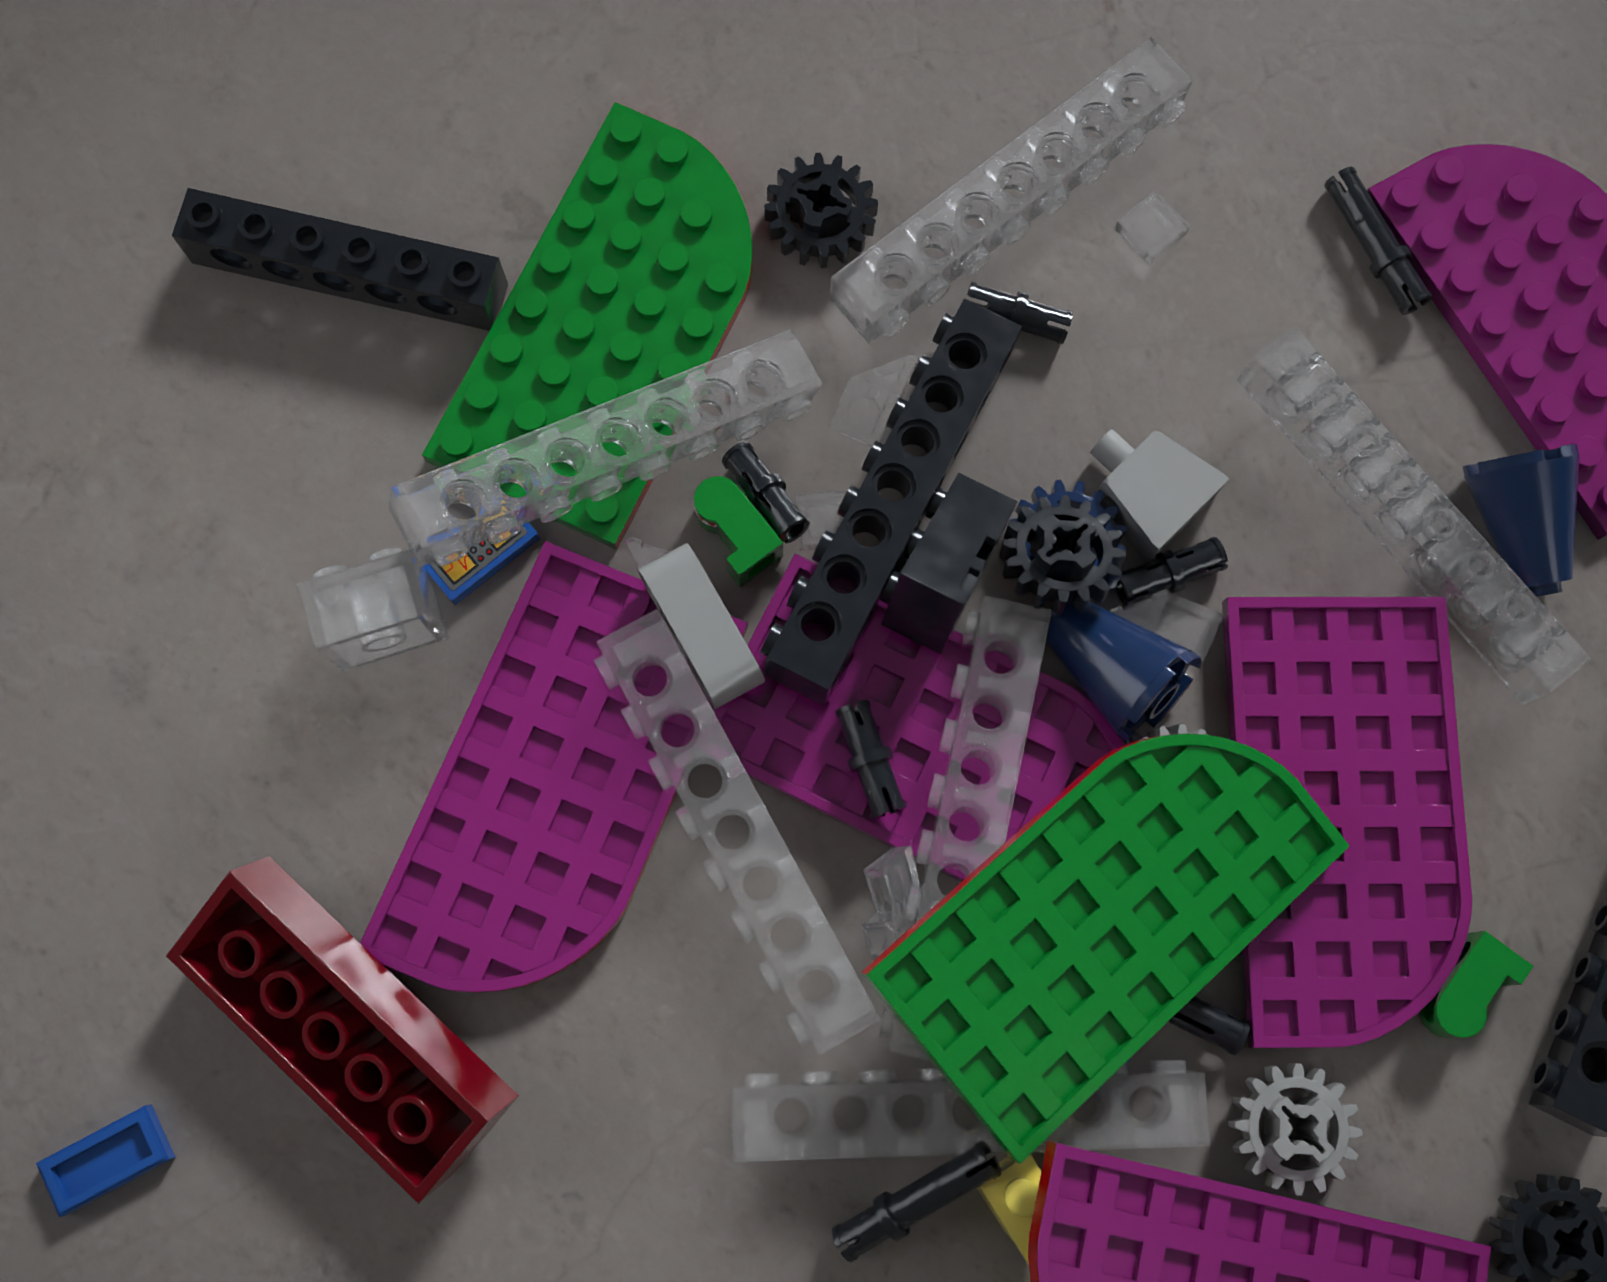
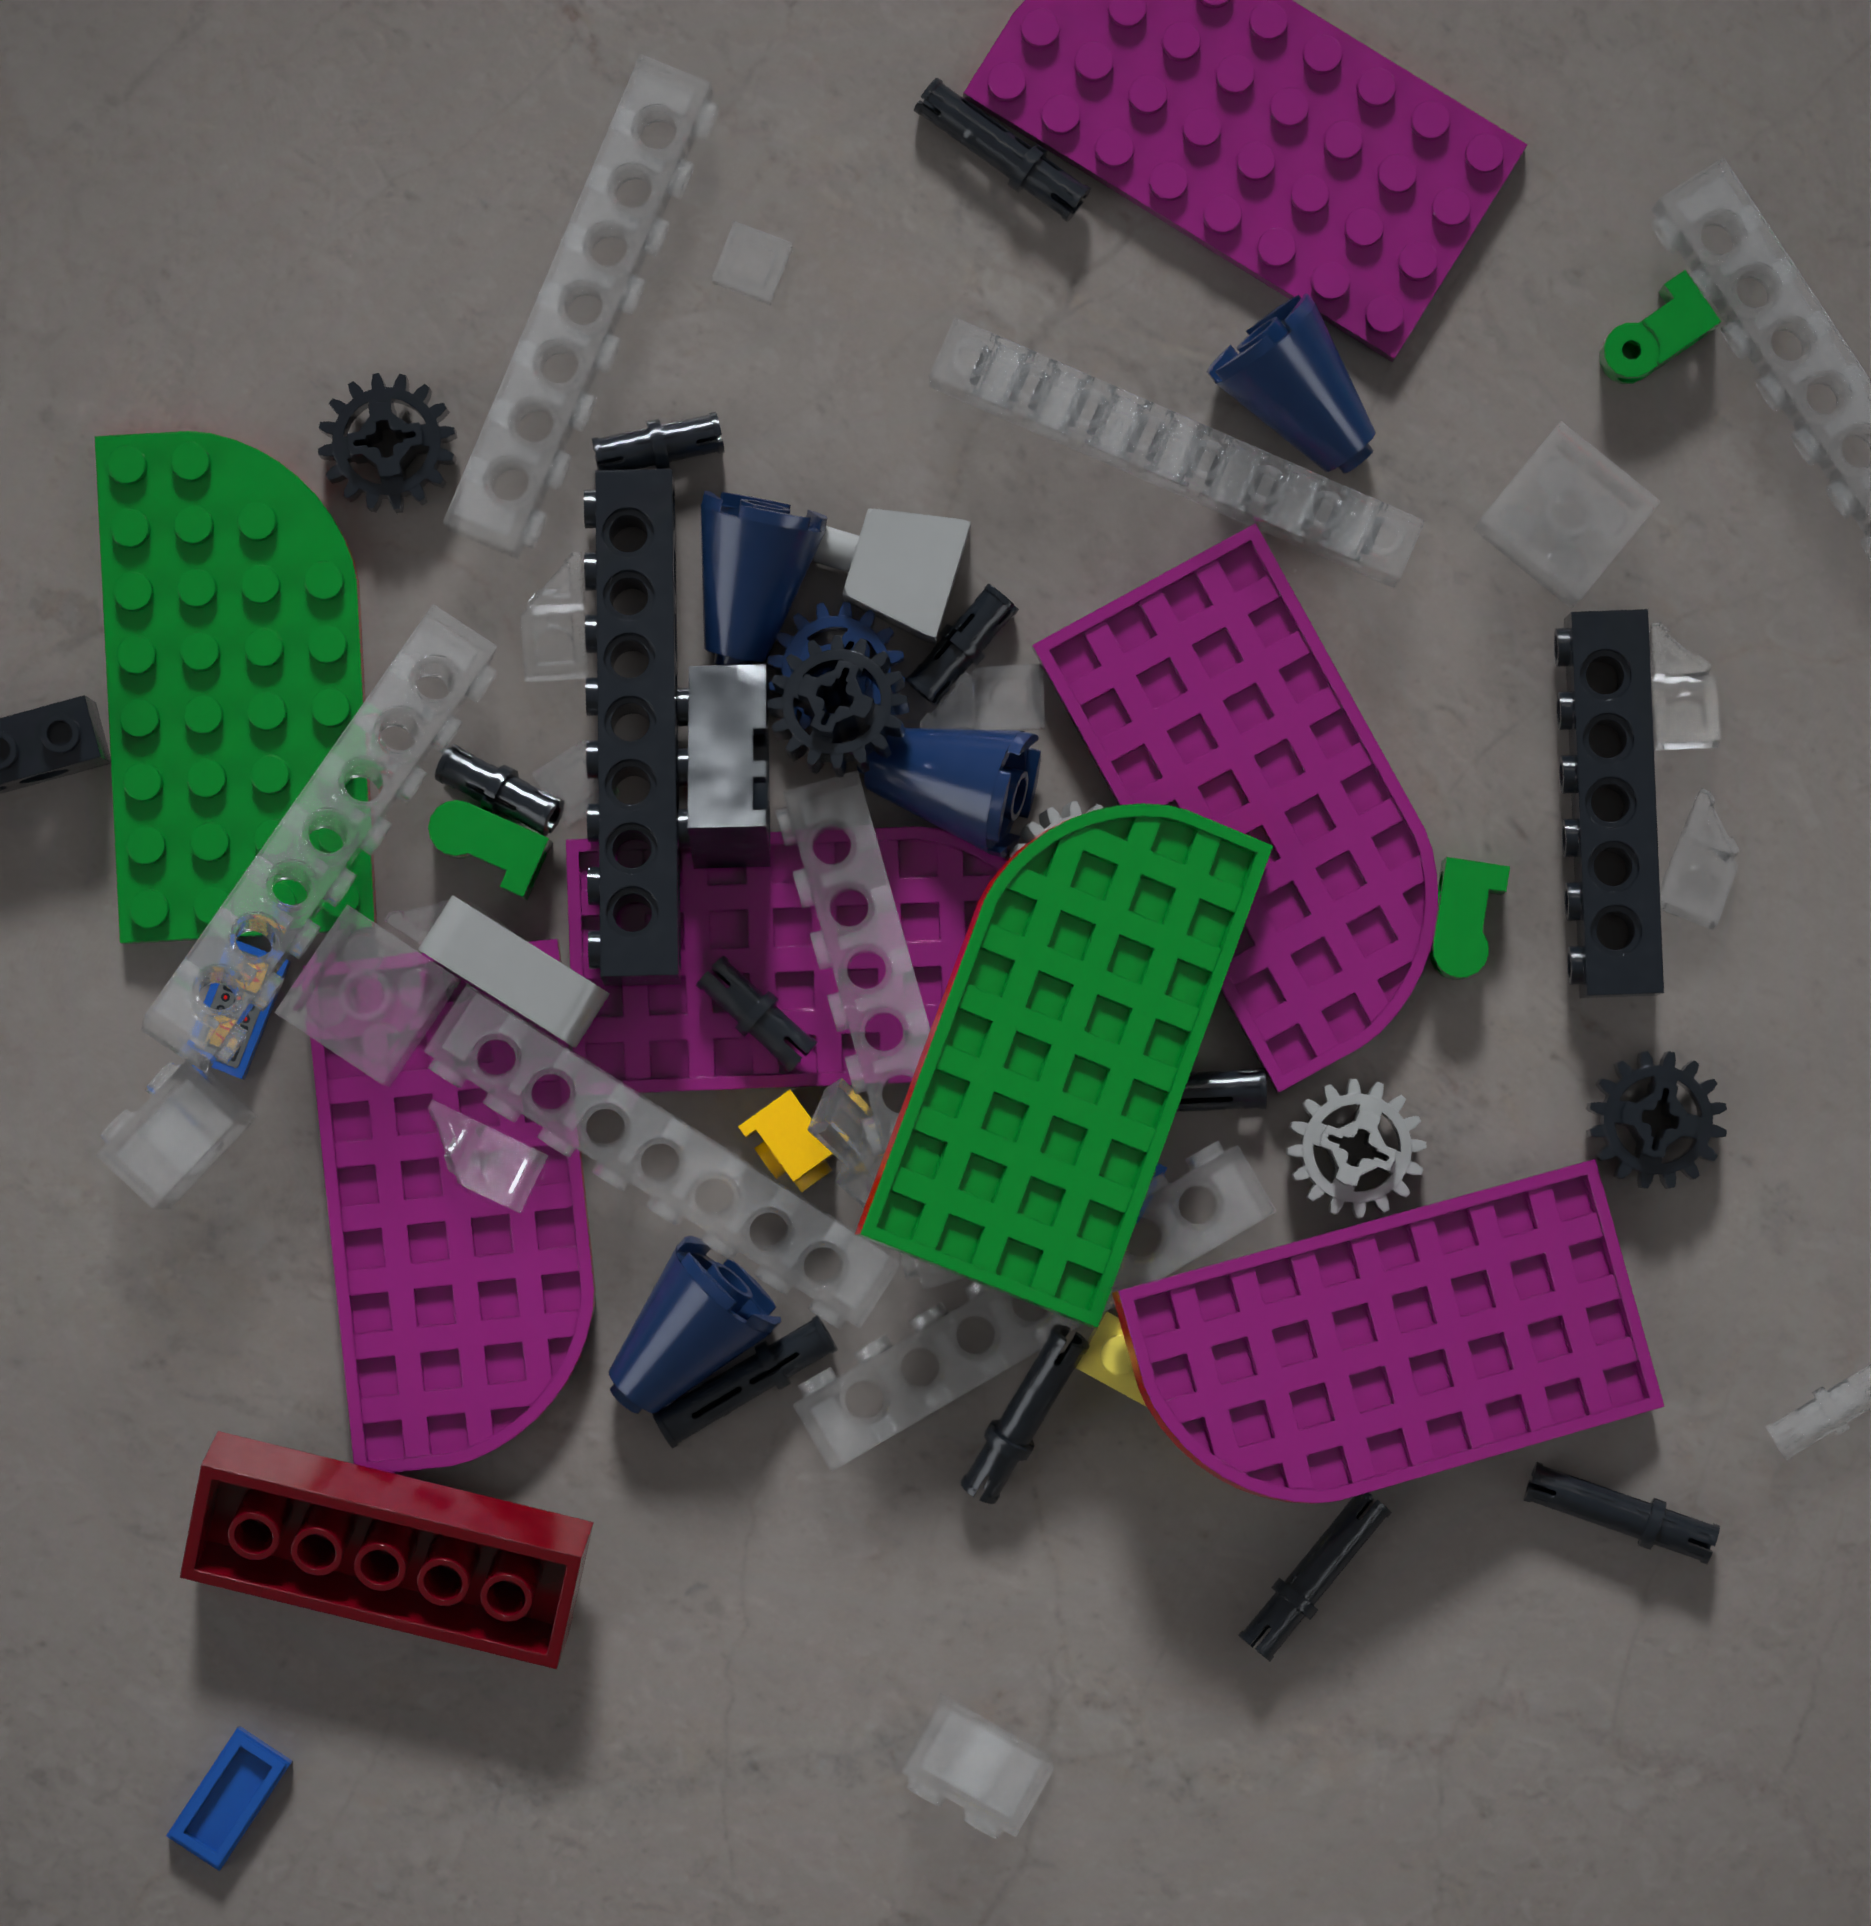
camera: 25 degrees left, 10 degrees up
(578, 580) = (368, 996): none -> clear brick
(600, 757) = (487, 1158): none -> clear slope
(682, 979) = (689, 1328): none -> dark blue cone
(703, 1047) = (745, 1381): none -> black pin
(841, 873) = (788, 1142): none -> yellow brick
(1044, 429) = (751, 572): none -> dark blue cone

